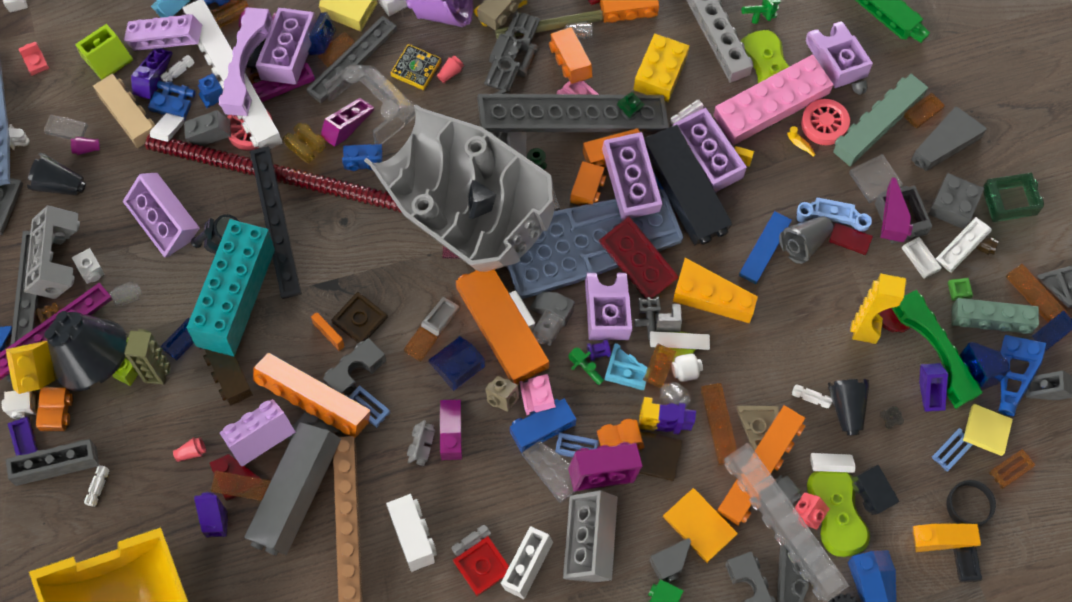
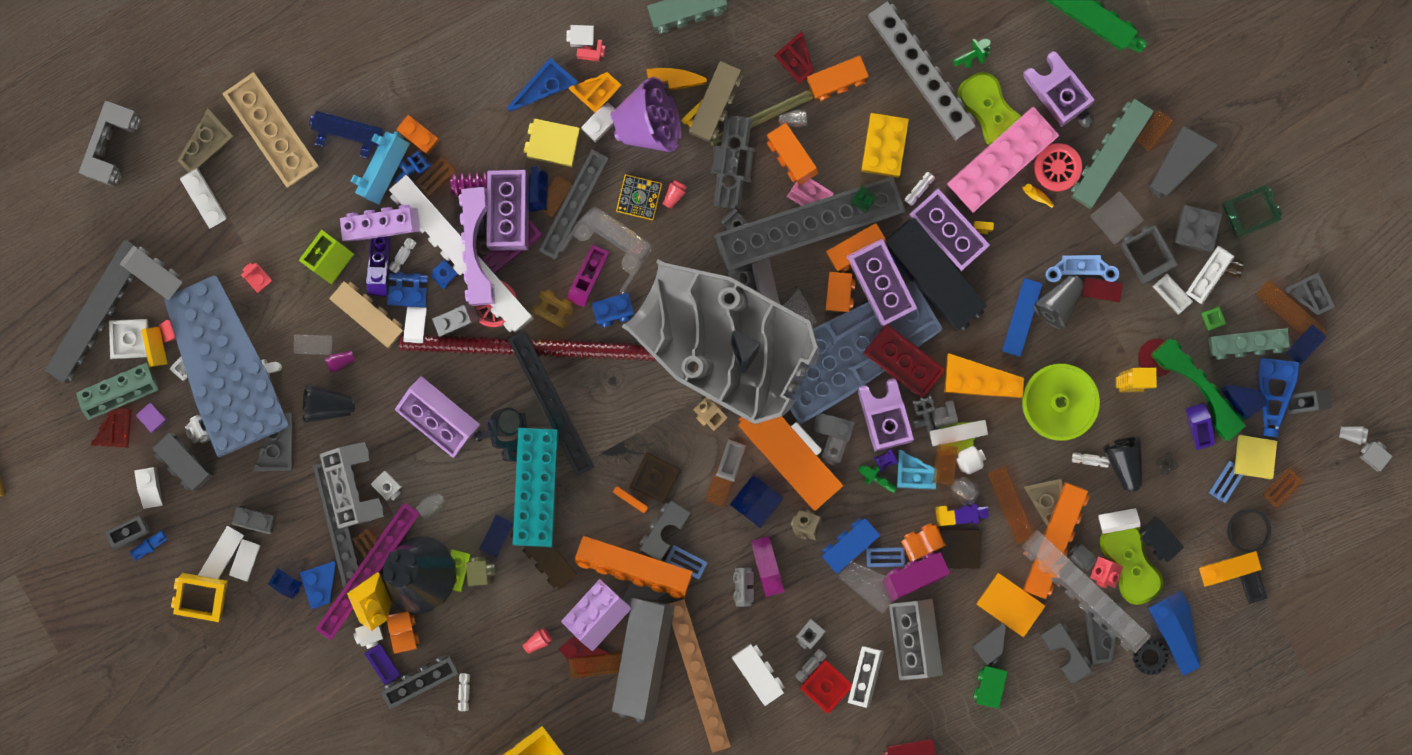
camera: 10 degrees left, 20 degrees up
(211, 515) = (579, 700): dark purple slope -> none
(430, 265) = (710, 413): none -> tan brick
(480, 499) = (816, 630): none -> light grey brick
(537, 394) = (839, 518): bright pink plate -> none
(538, 157) = (781, 282): dark green brick -> none
(791, 330) = (1060, 402): none -> lime dish
(896, 216) = (1140, 266): magenta slope -> none

